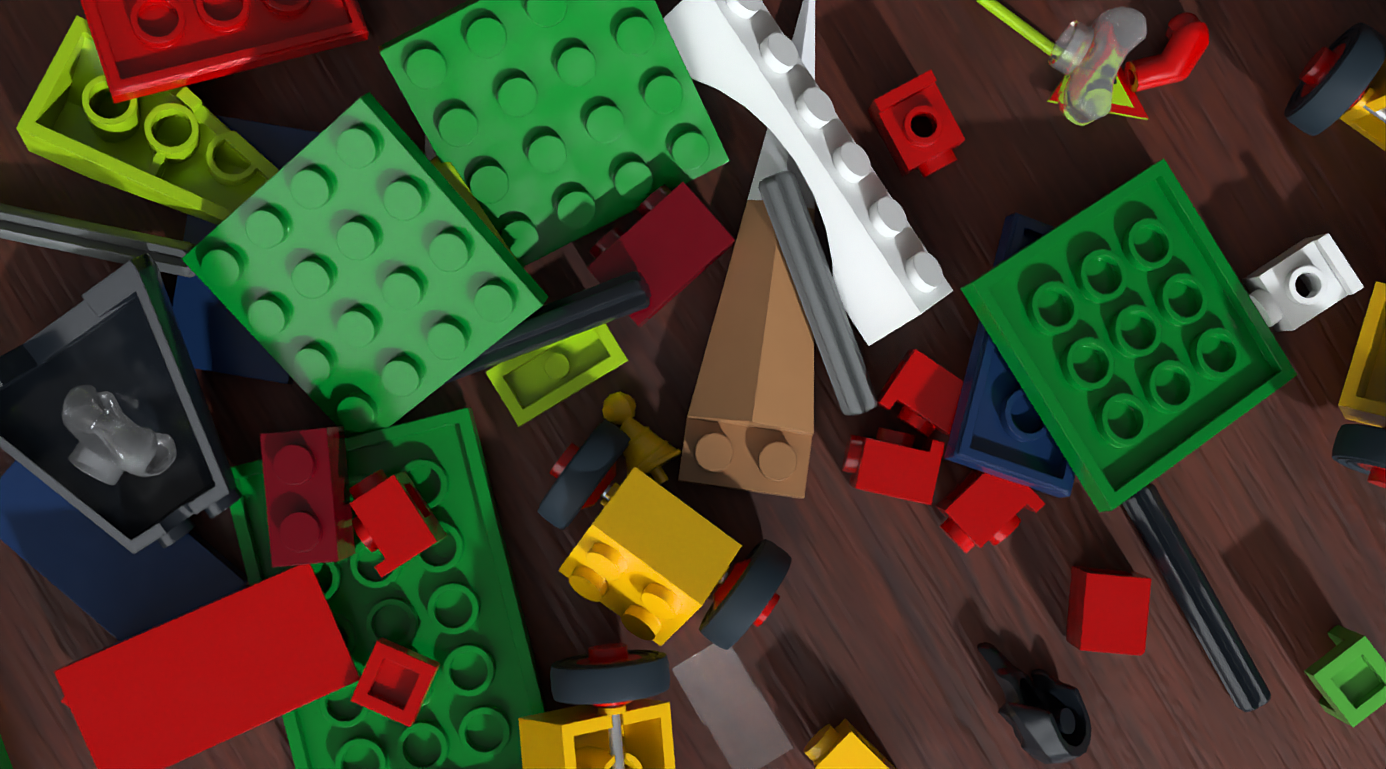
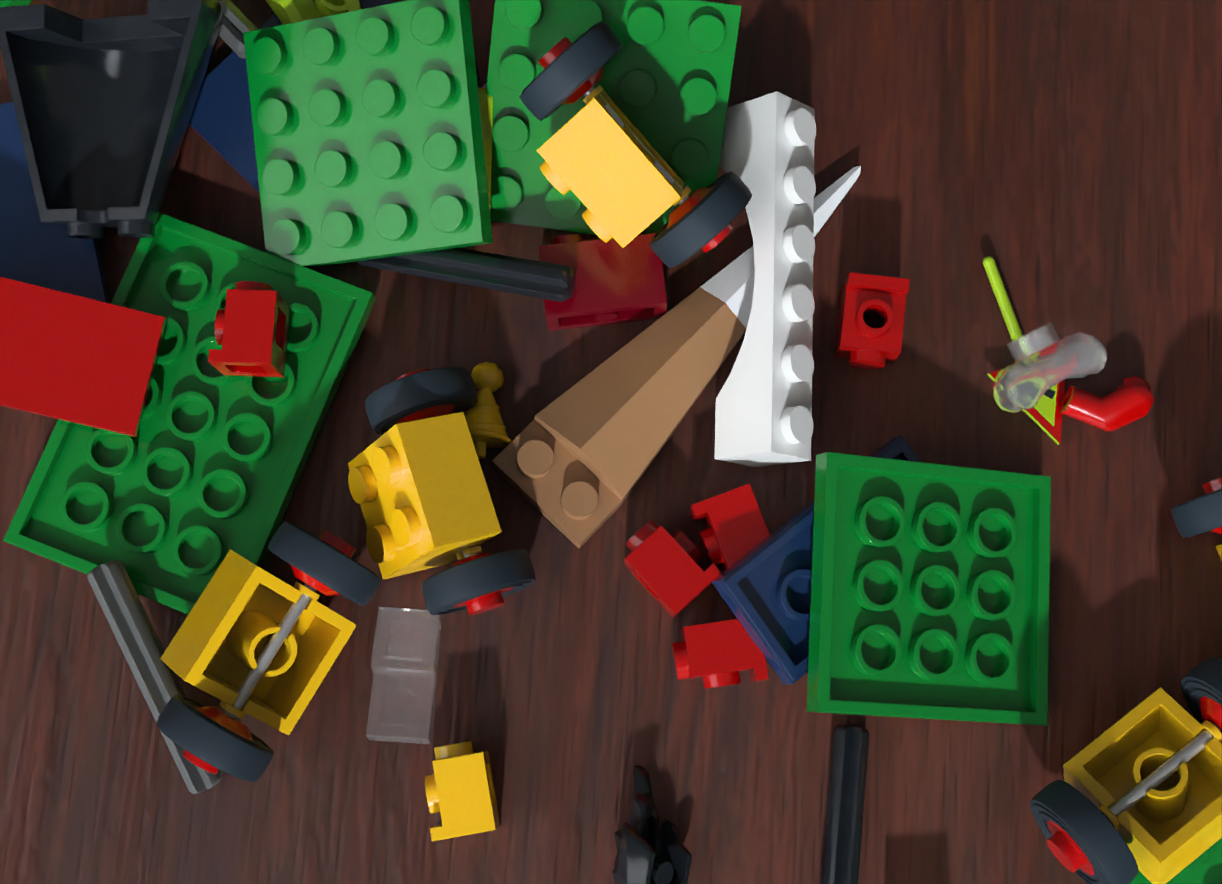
camera: 40 degrees right, 10 degrees down
(111, 440) = (91, 128): clear piece -> none
(307, 496) = (199, 263): dark red brick -> none
(395, 681) = (158, 456): red plate -> none
(555, 372) = (460, 313): lime plate -> none
(611, 157) = (615, 166): none -> brick
(818, 293) = (703, 391): dark grey axle -> none
(1108, 610) = (762, 808): red panel -> none
(1320, 268) = (1122, 653): white brick -> none

